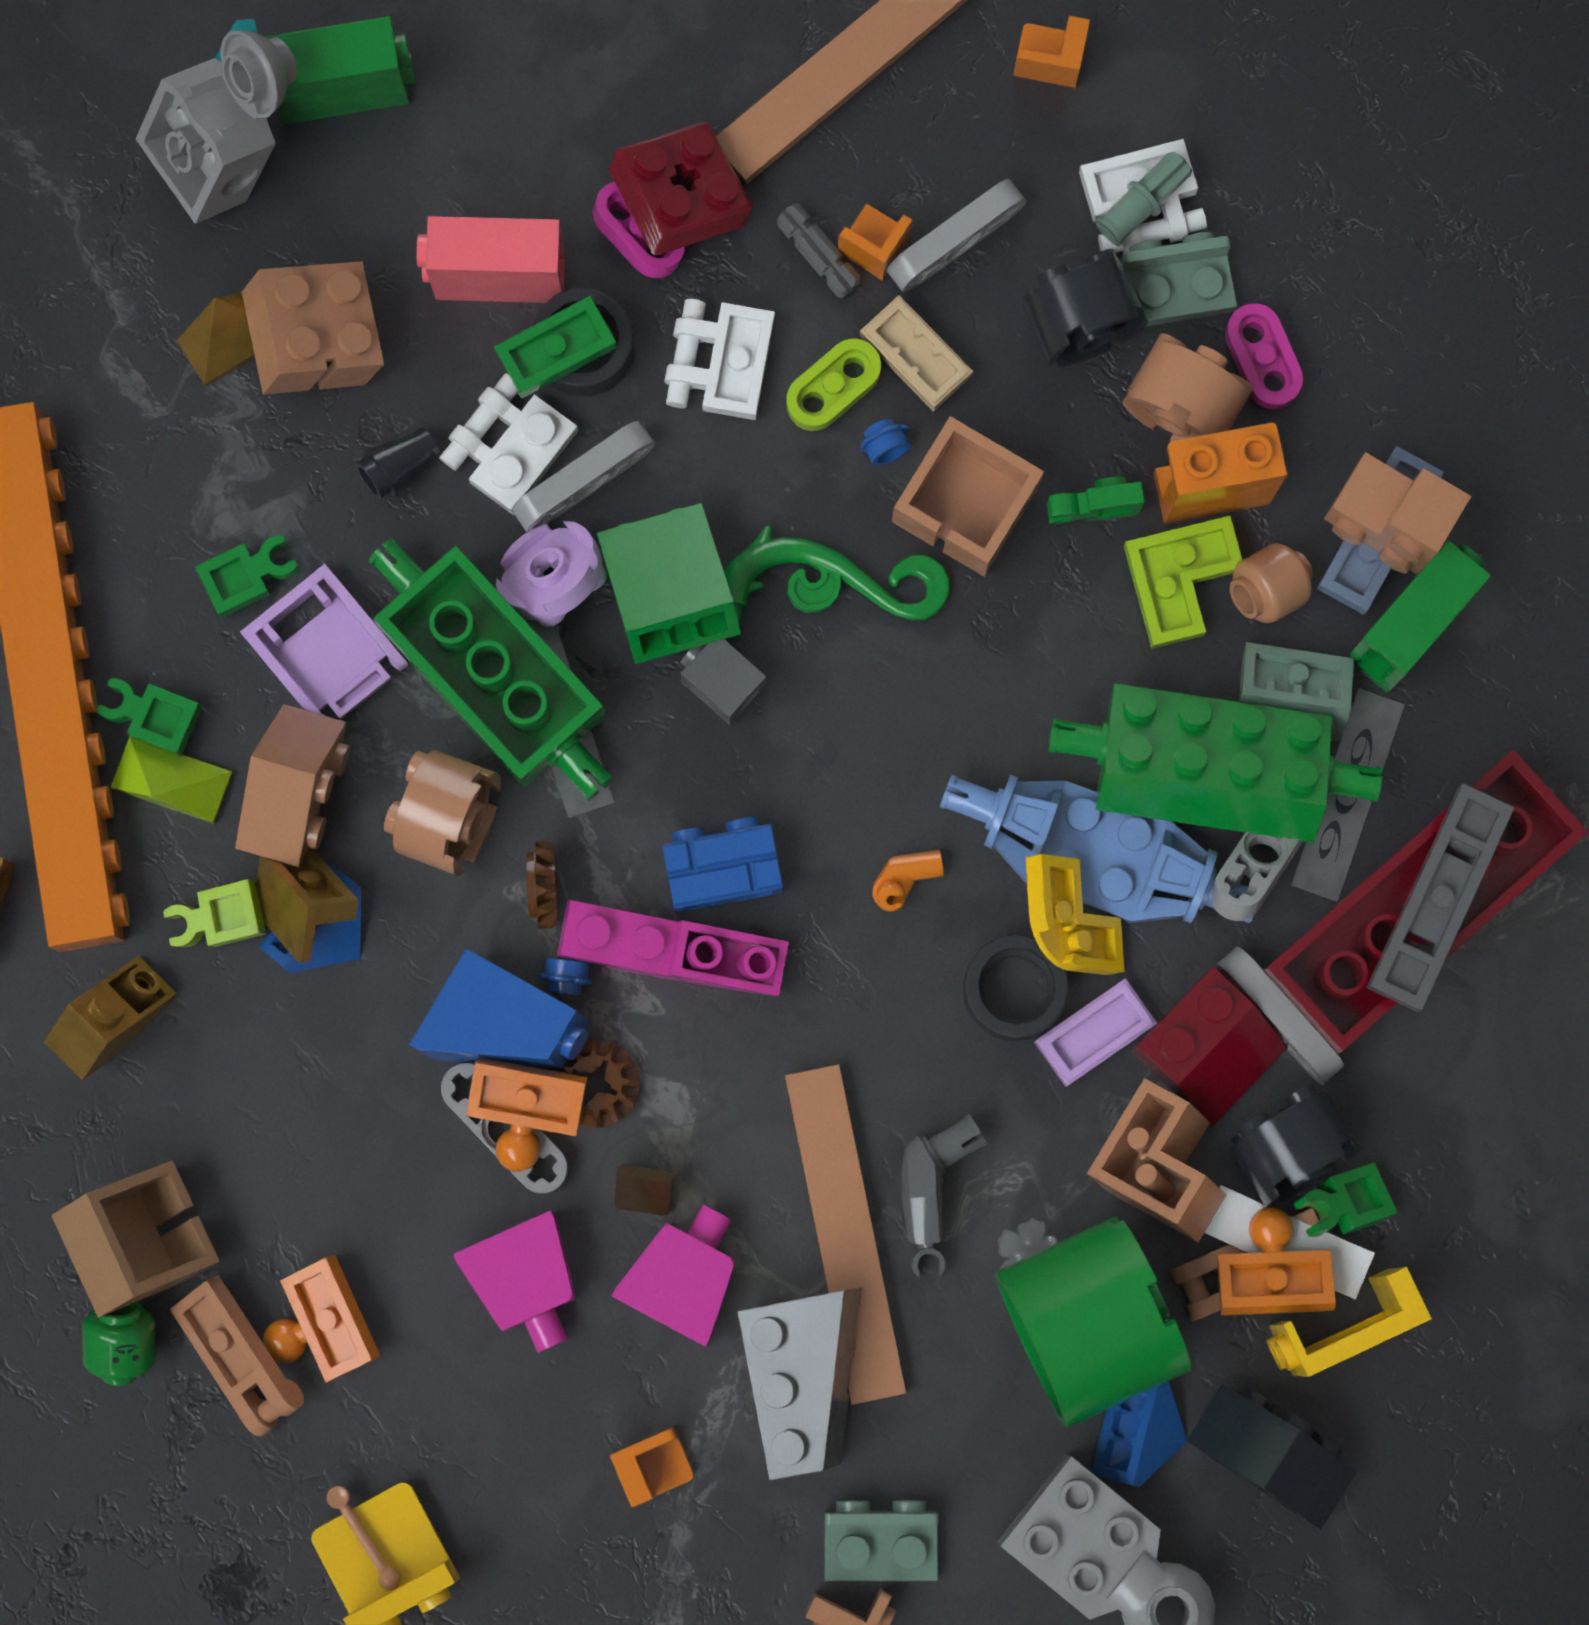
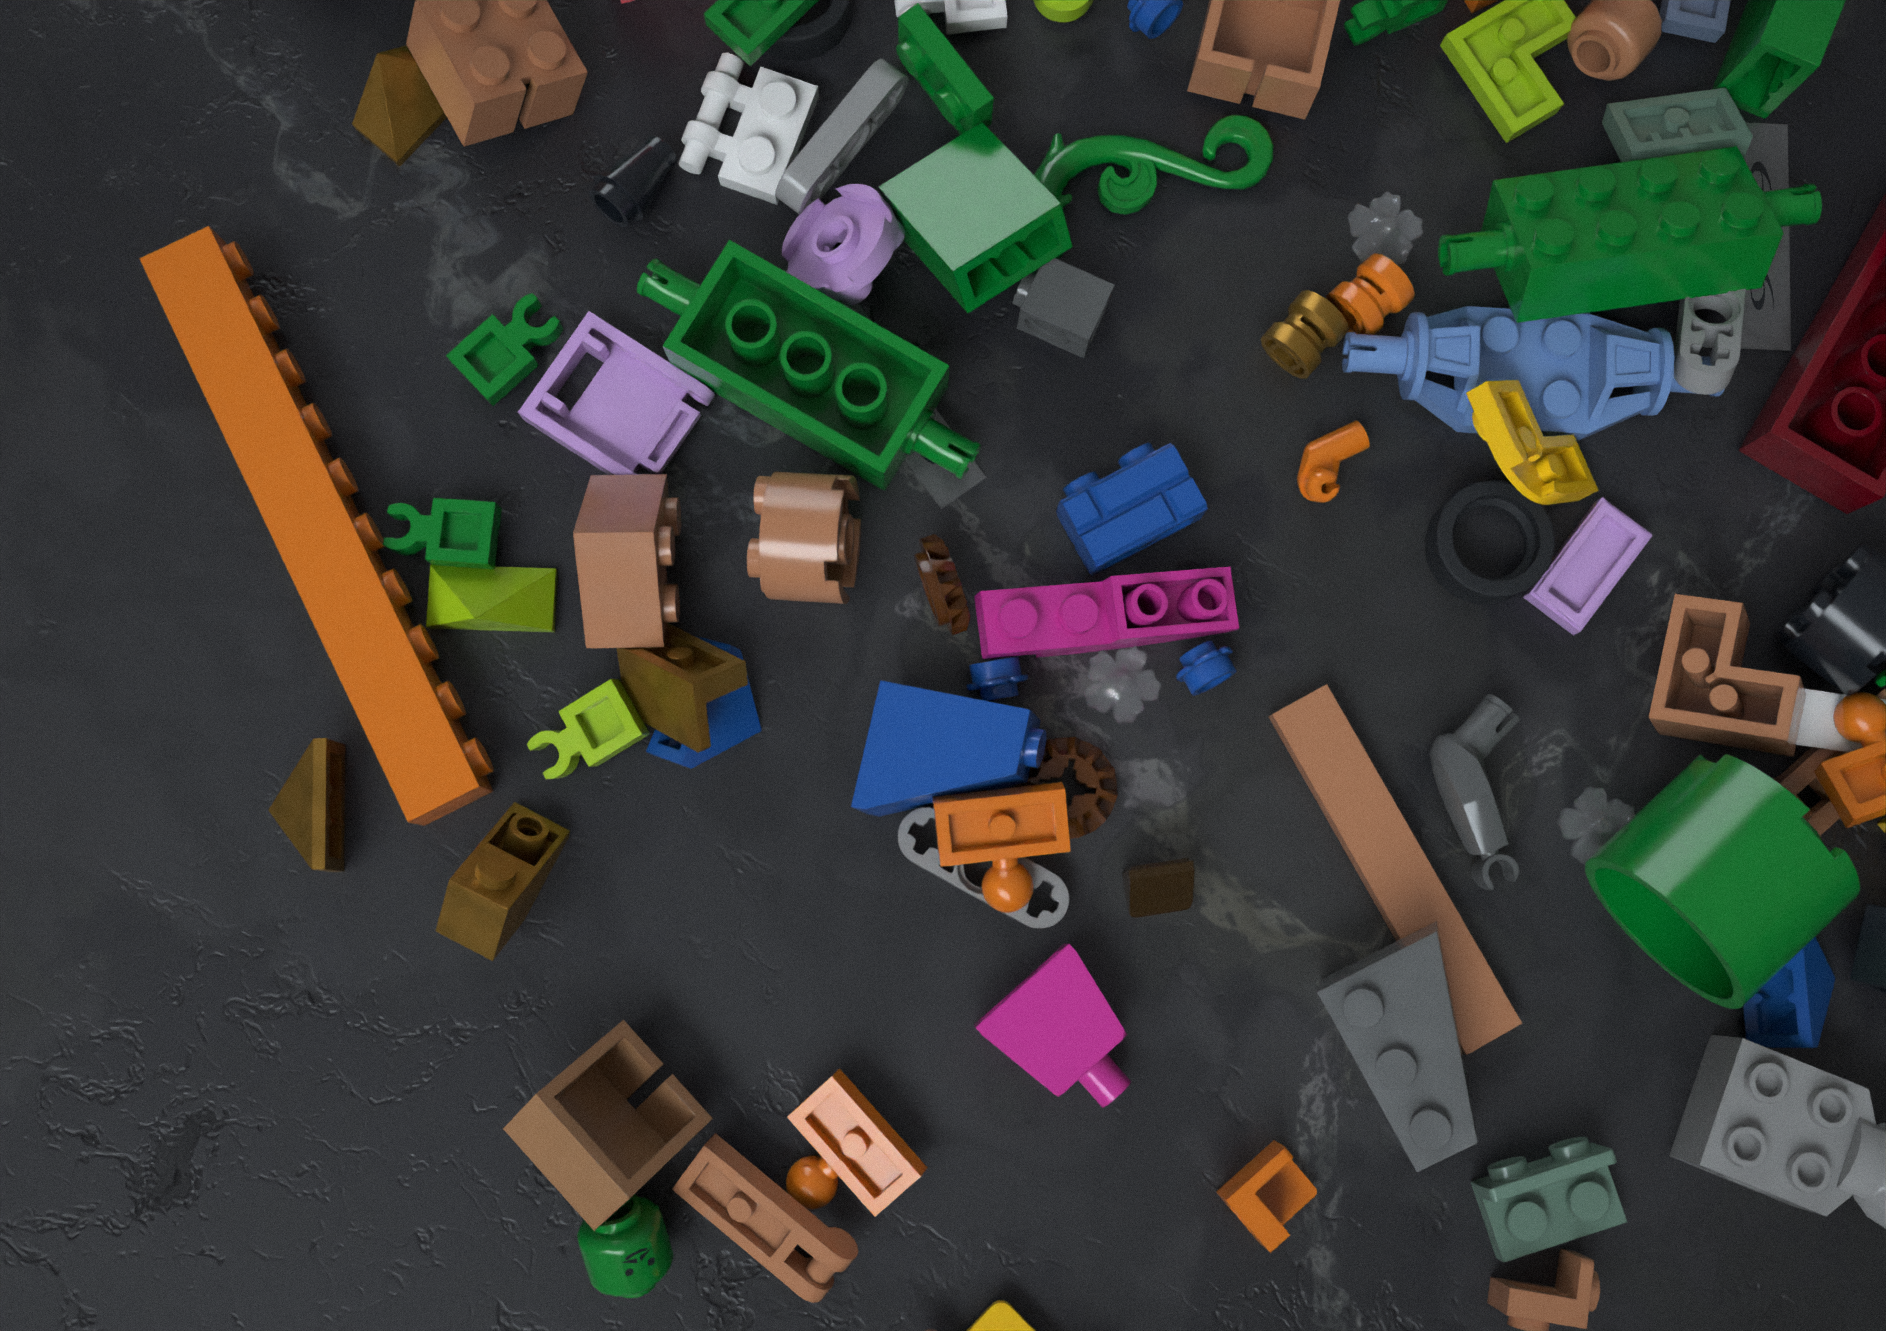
camera: 20 degrees left, 0 degrees up
(670, 1011) = (1121, 684): none -> clear plant
(673, 431) = (942, 71): none -> green plate
(682, 1277) = (1236, 972): dark pink torso -> none
(742, 1019) = (1205, 667): none -> blue plate
(907, 770) = (1304, 334): none -> pearl gold wheel
(973, 755) = (1372, 294): none -> orange wheel
(1021, 692) = (1383, 230): none -> clear plant
(1210, 1046) = (1715, 534): dark red slope -> none
(1285, 1019) = (1782, 486): light grey beam -> none

